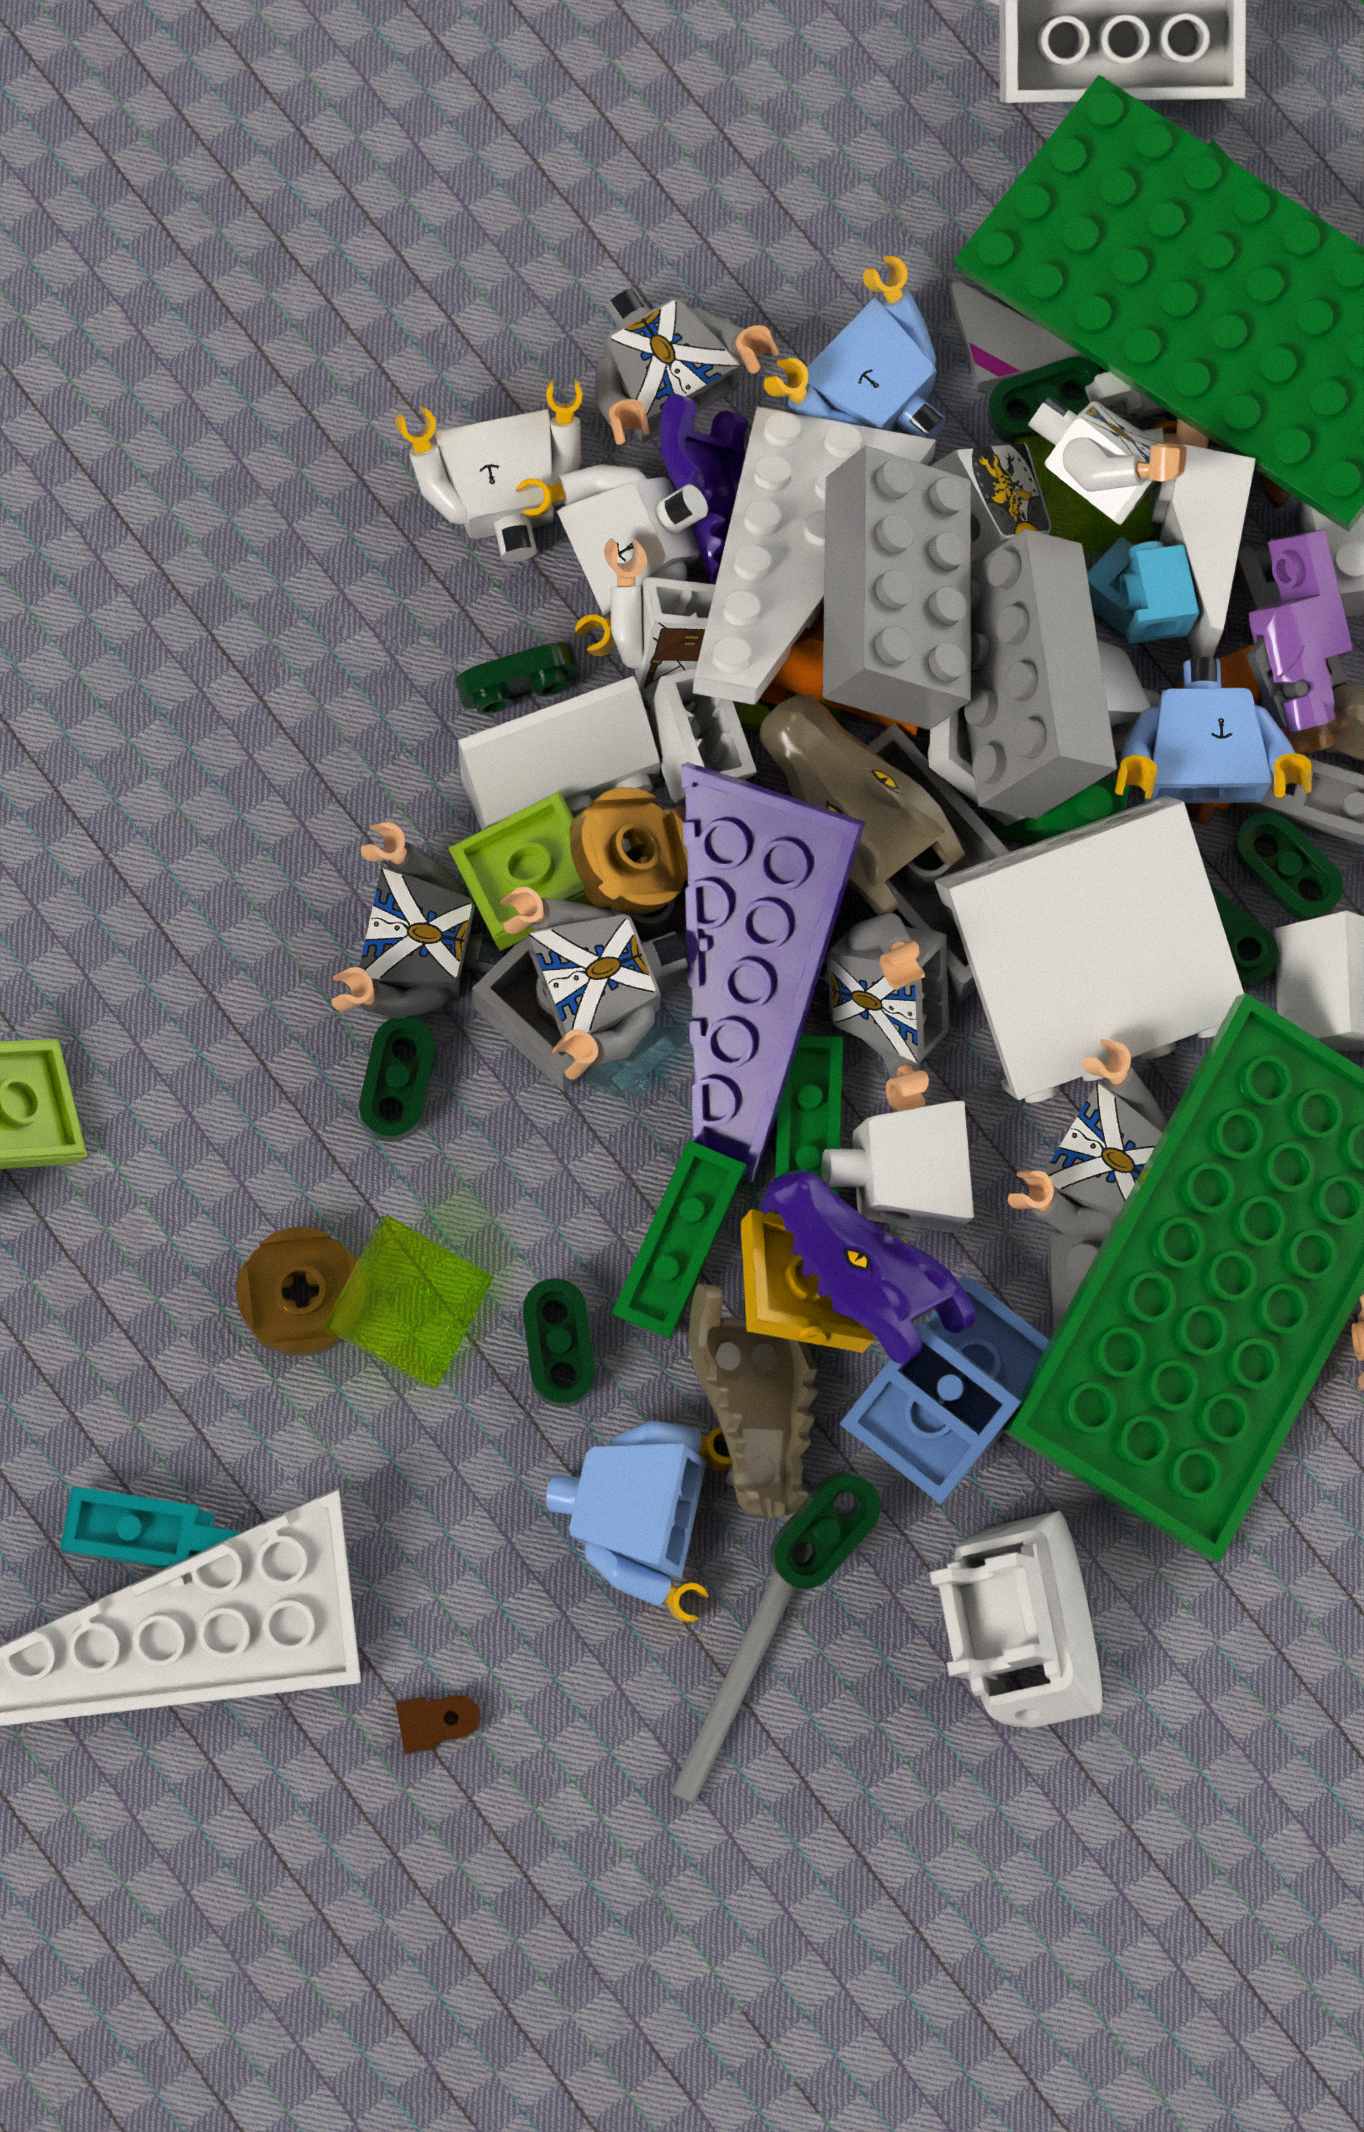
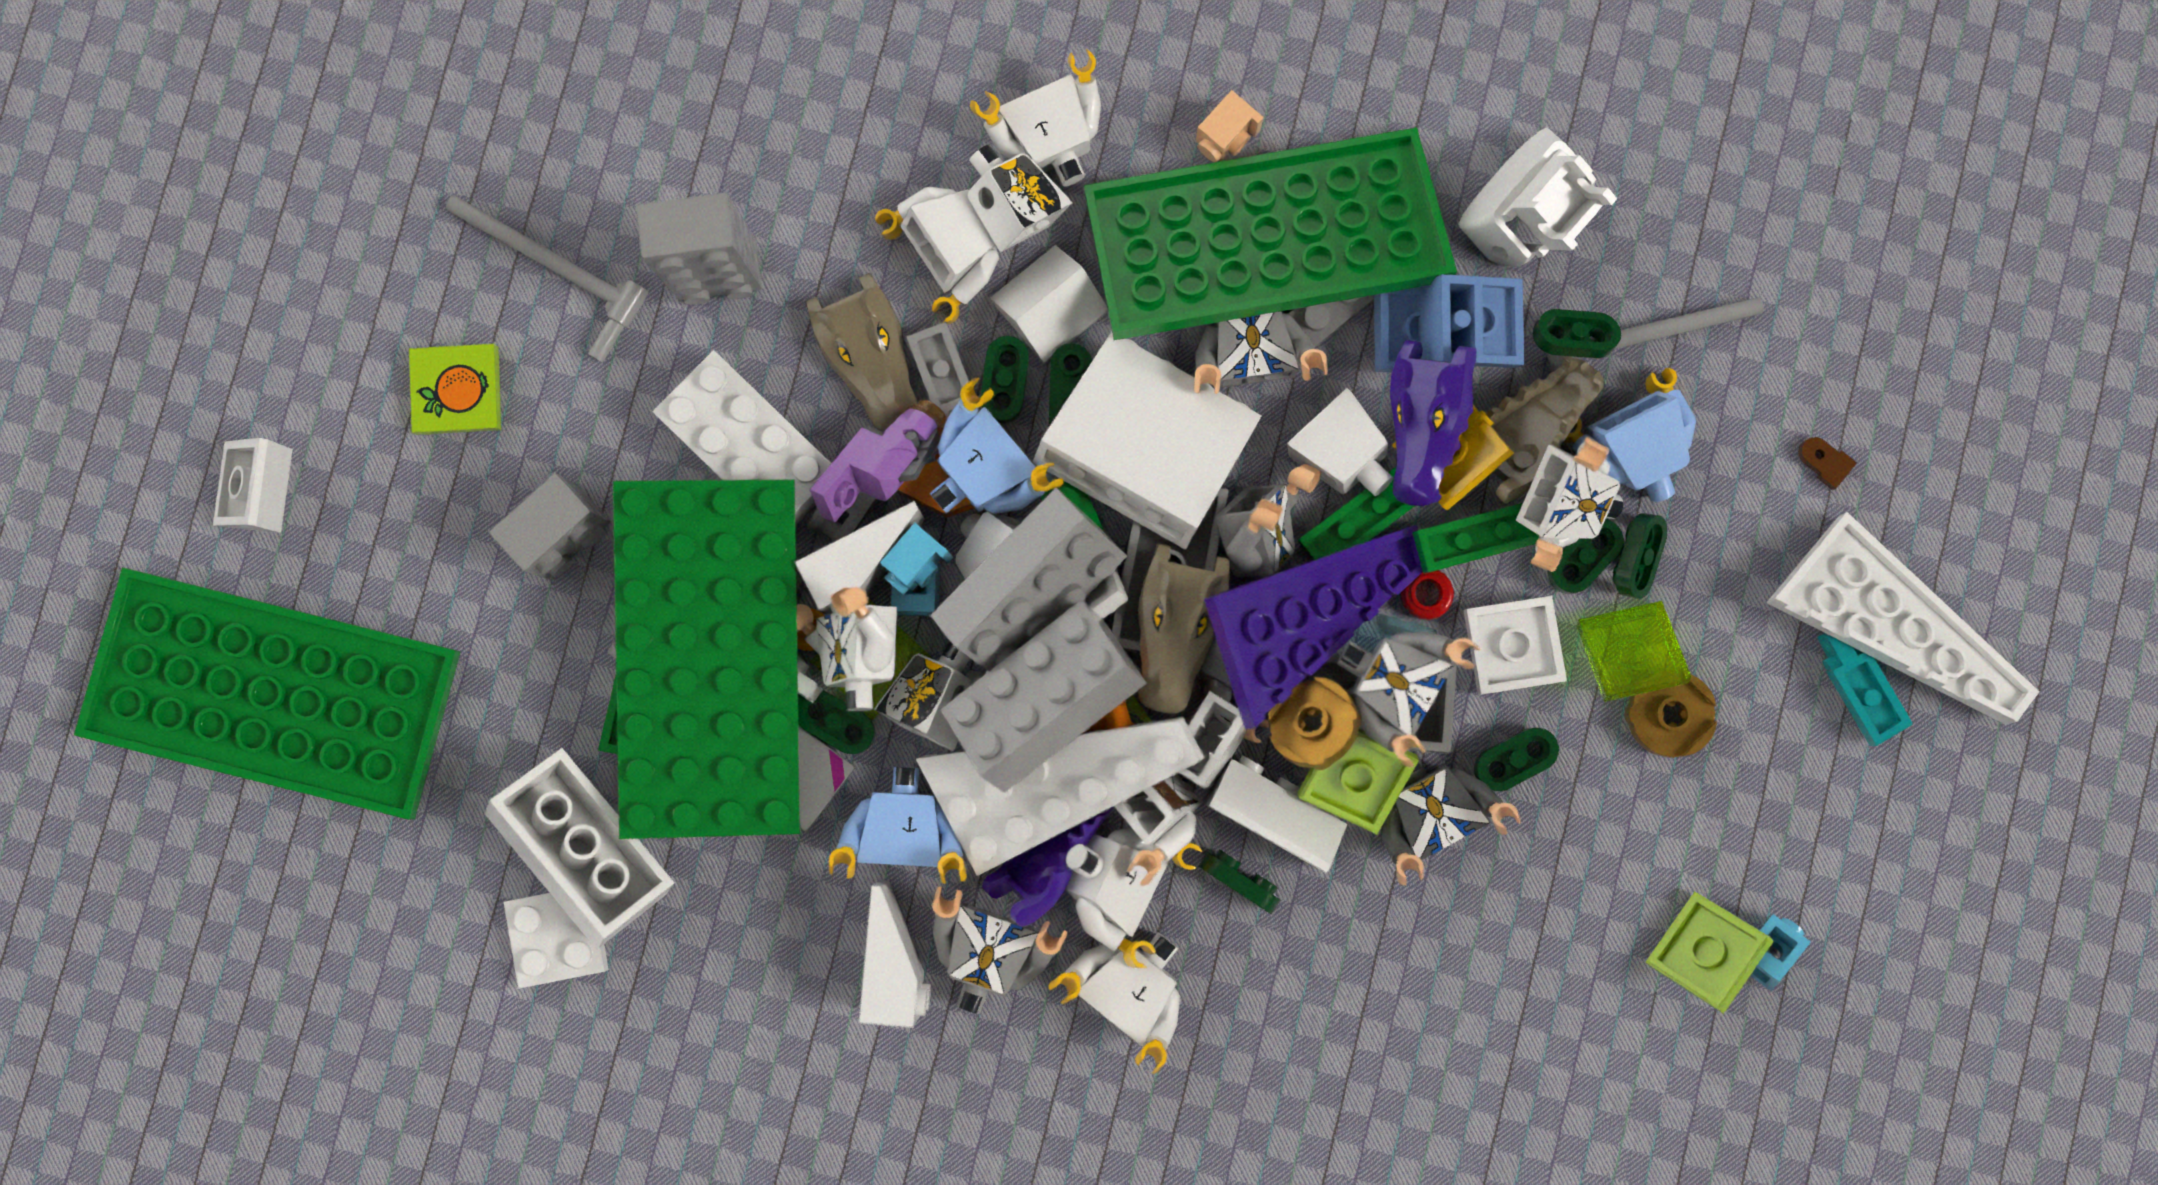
camera: 125 degrees left, 10 degrees up
(507, 1404) = (1640, 555): none -> dark green plate
(524, 1181) = (1516, 645): none -> white plate
(638, 1347) = (1569, 500): none -> torso
(648, 1113) = (1442, 605): none -> red piece
(739, 253) = (892, 969): none -> white slope

